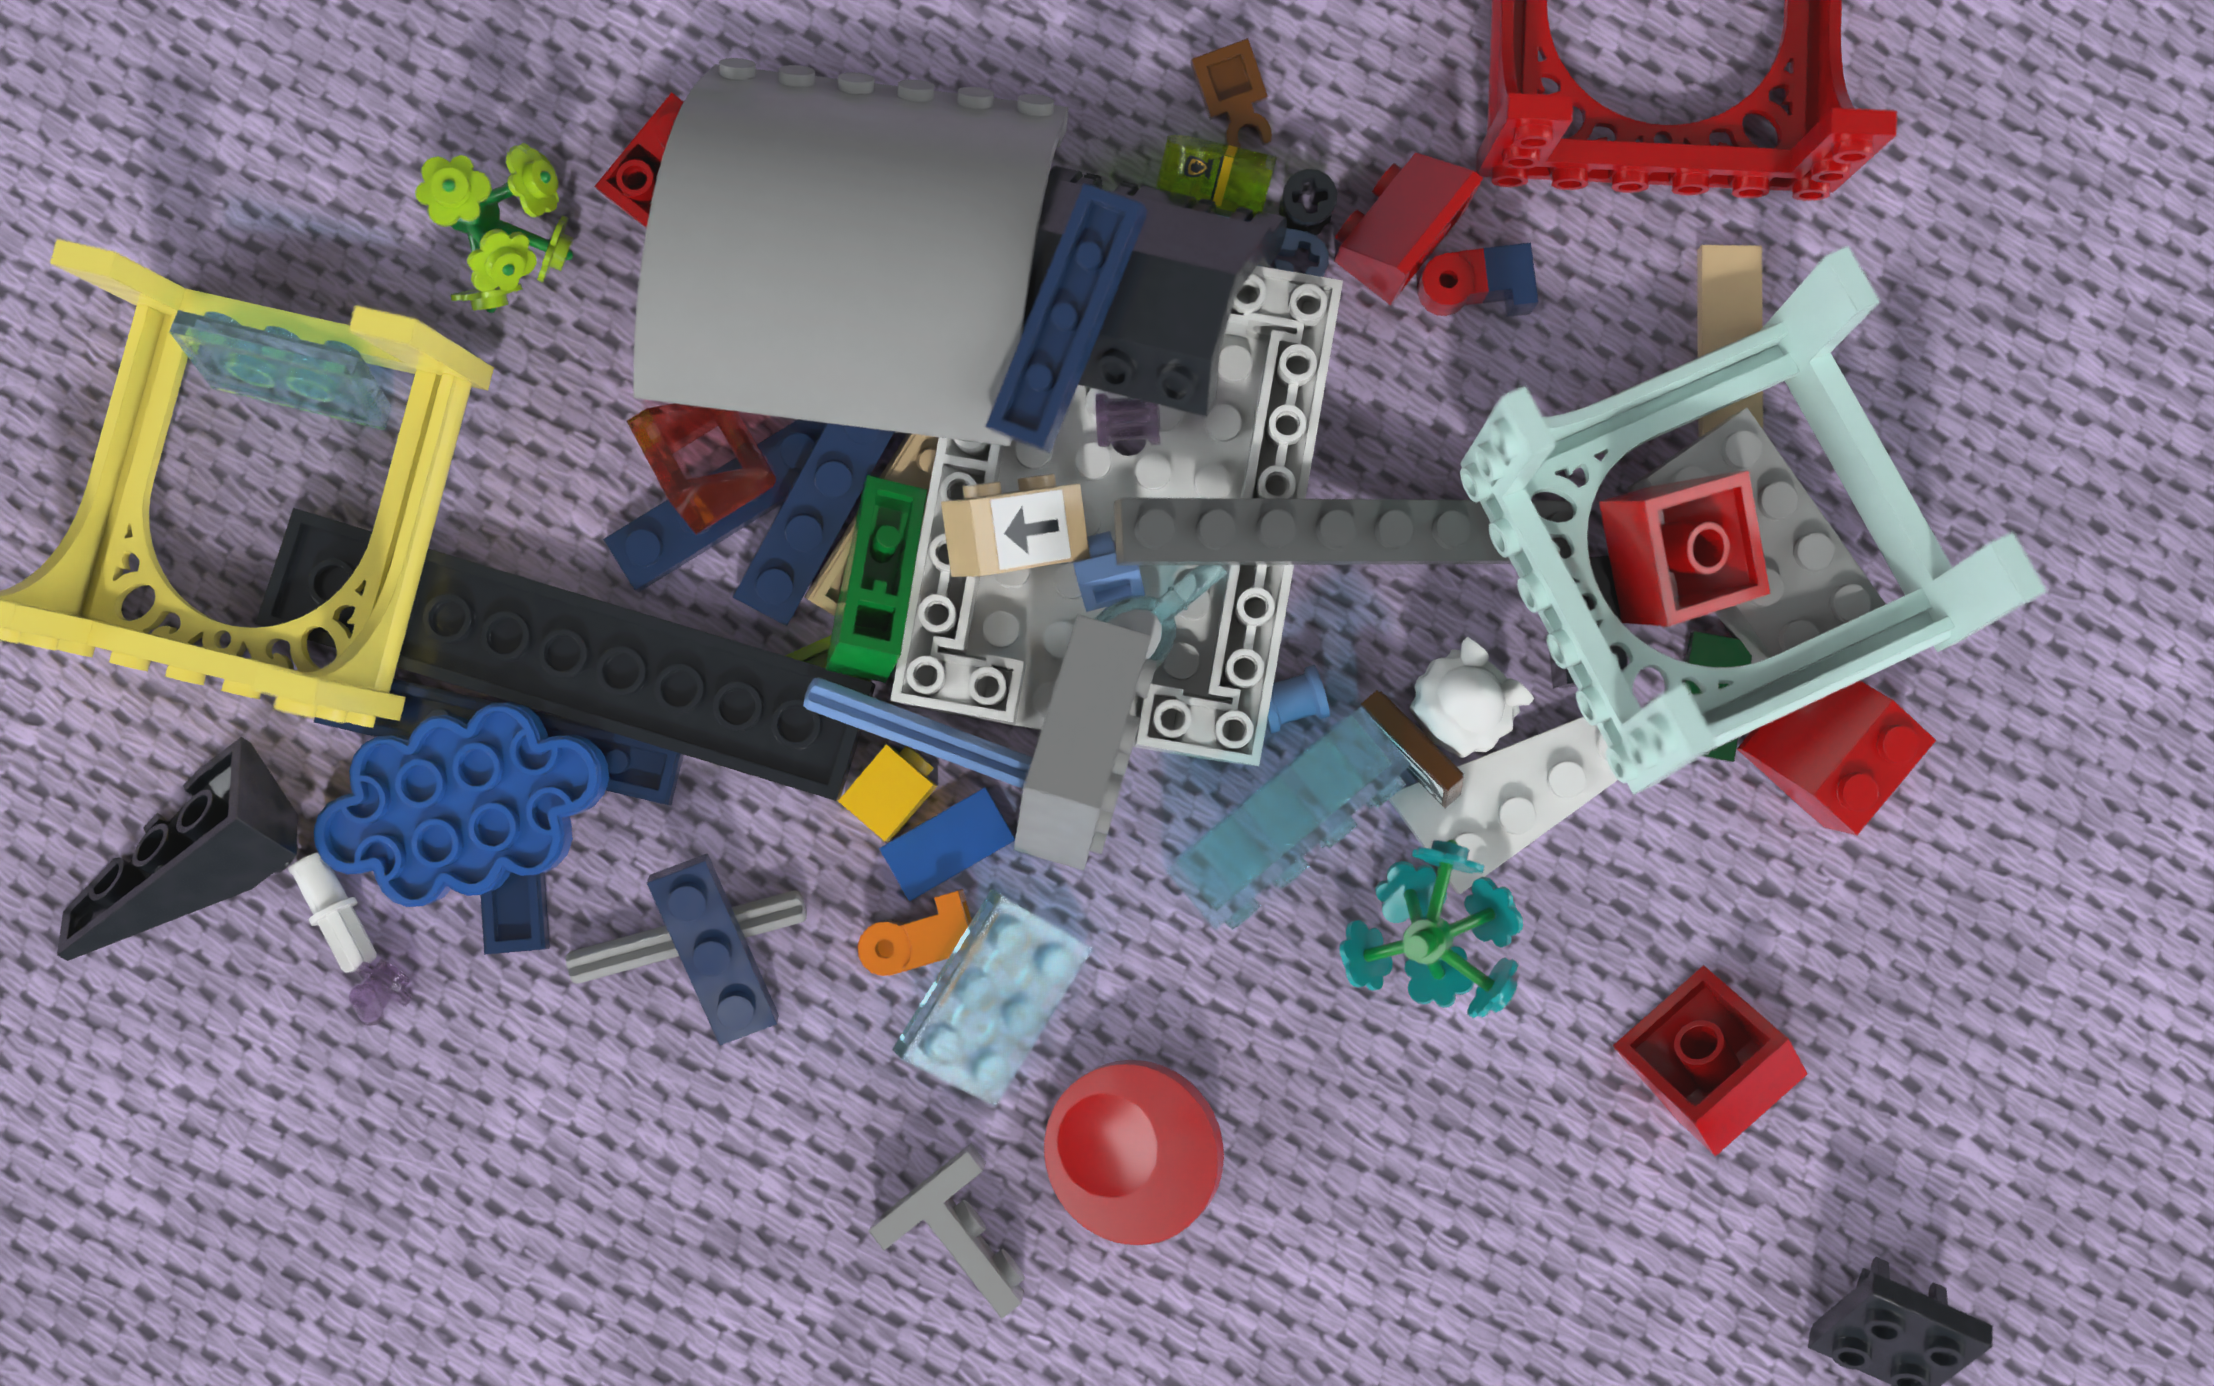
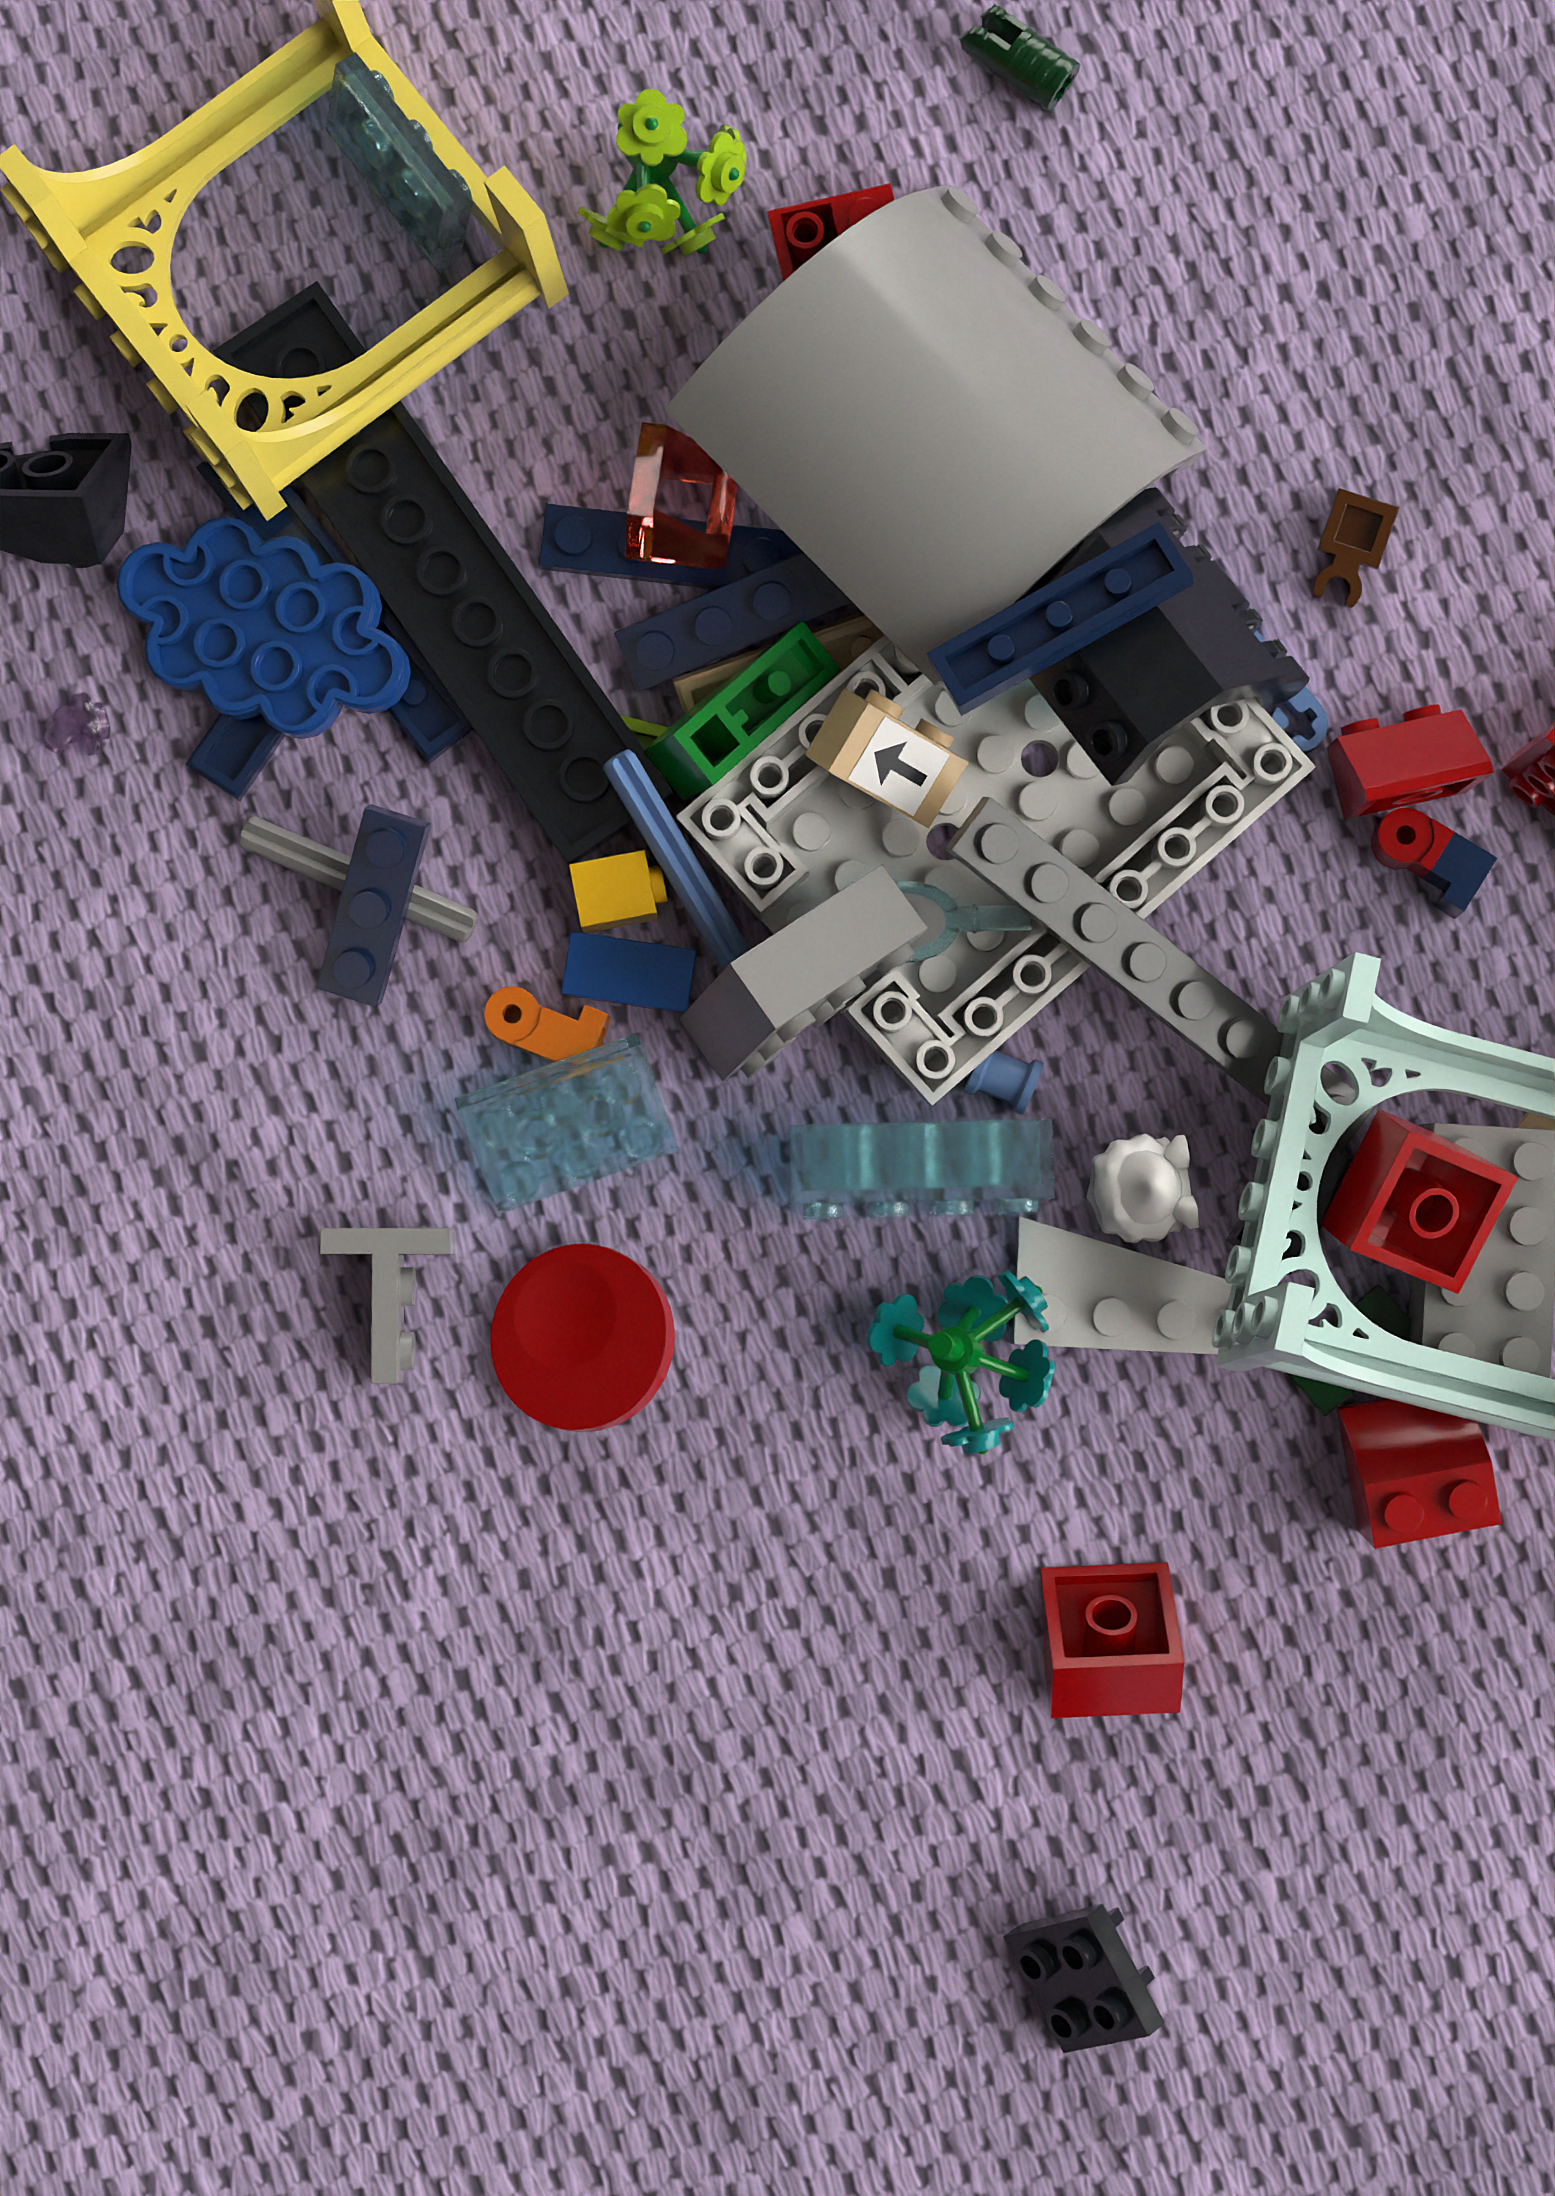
camera: 30 degrees right, 0 degrees up
(333, 912) = (91, 633): white axle -> none
(1101, 579) = (924, 855): medium blue tile -> none
(1126, 420) = (1047, 741): clear purple bush -> none
(1216, 172) = (1285, 598): clear neon green leg -> none
(1321, 193) = (1358, 684): black bush -> none
(1427, 761) = (1071, 1202): reddish brown tile -> none

